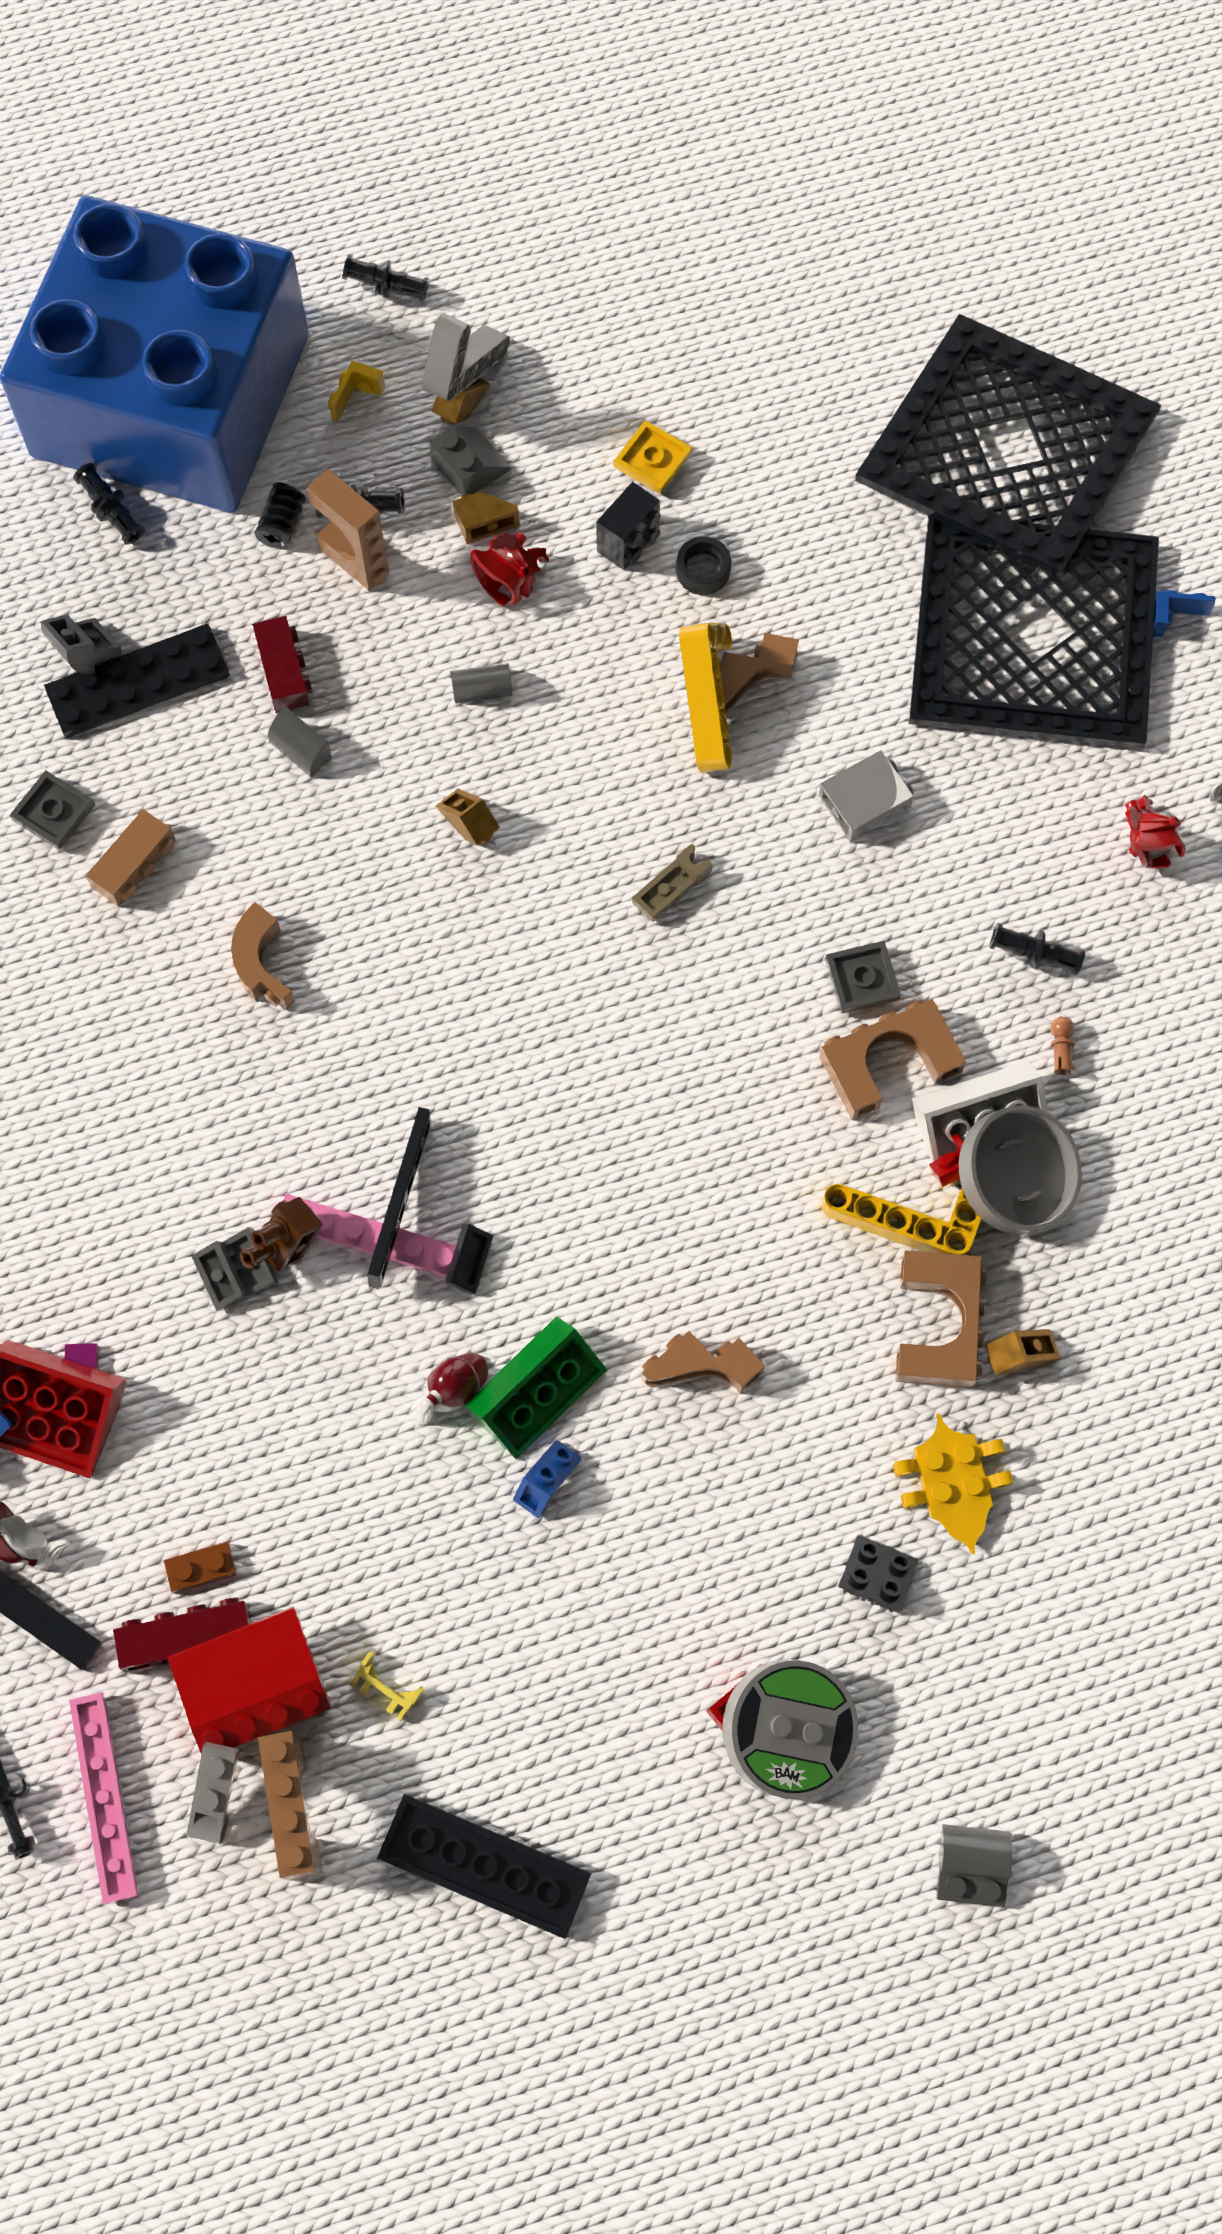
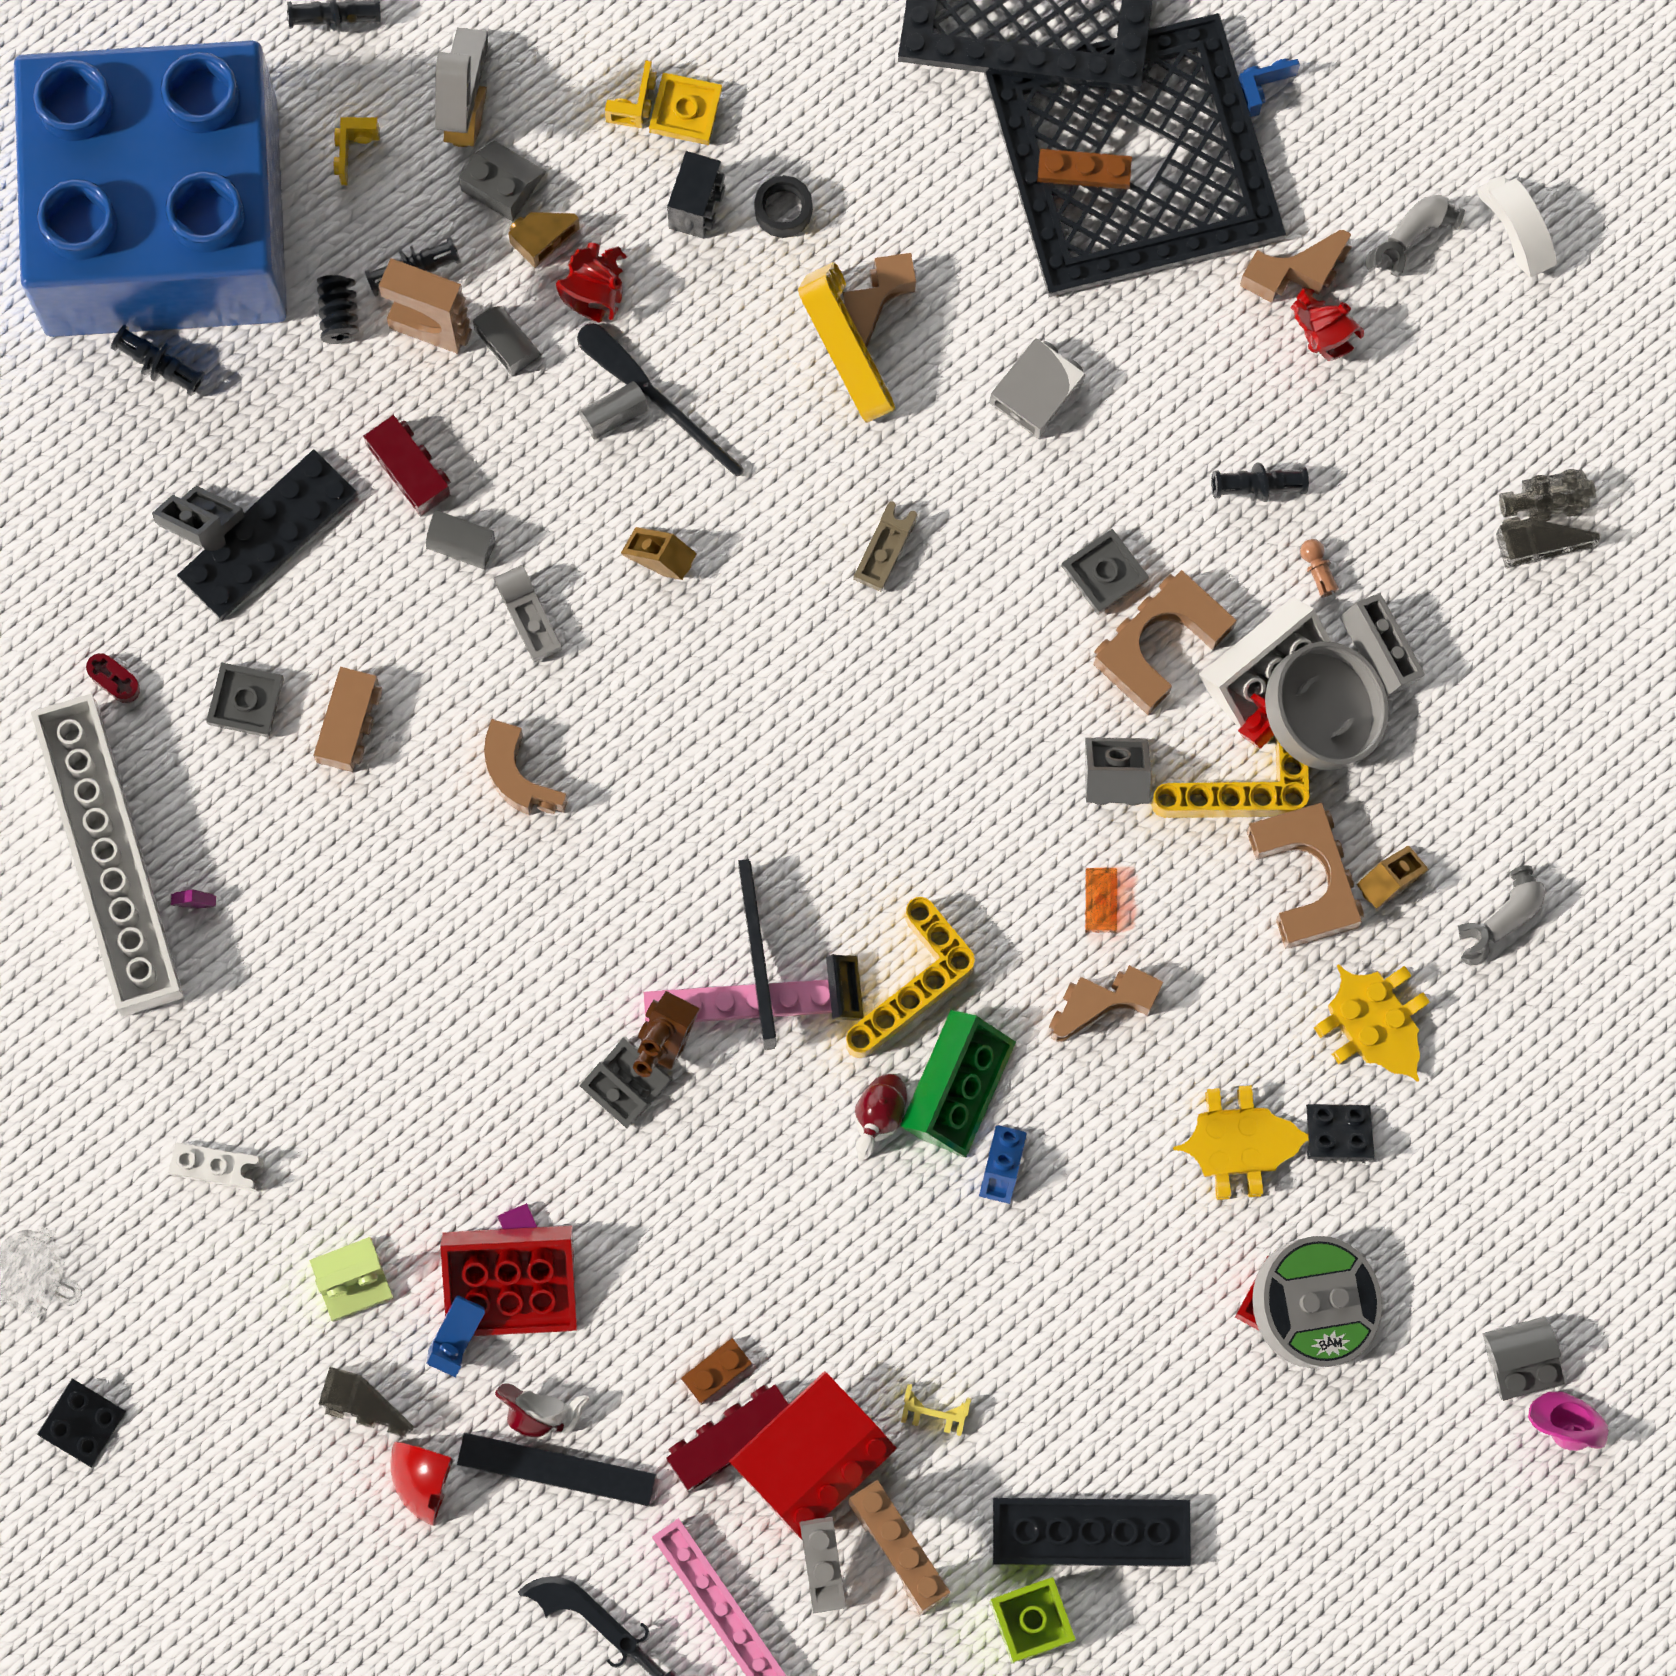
camera: 25 degrees left, 5 degrees up
(329, 825) = (527, 613): none -> light grey plate
(389, 1930) = (1032, 1620): none -> lime brick
(414, 591) = (505, 339): none -> dark grey brick
(503, 644) = (617, 361): none -> black piece
(534, 1282) = (917, 986): none -> yellow beam
(606, 446) = (624, 111): none -> yellow bracket
(739, 1270) = (1100, 900): none -> clear orange plate
(780, 1545) = (1240, 1142): none -> yellow animal
(801, 1158) = (1117, 771): none -> dark grey slope
(984, 624) = (1084, 169): none -> dark orange plate
(994, 1947) = (1568, 1421): none -> dark pink hat
(1095, 1133) = (1382, 643): none -> light grey brick
(1138, 1425) = (1524, 903): none -> piece
(1156, 779) = (1310, 268): none -> medium nougat arch

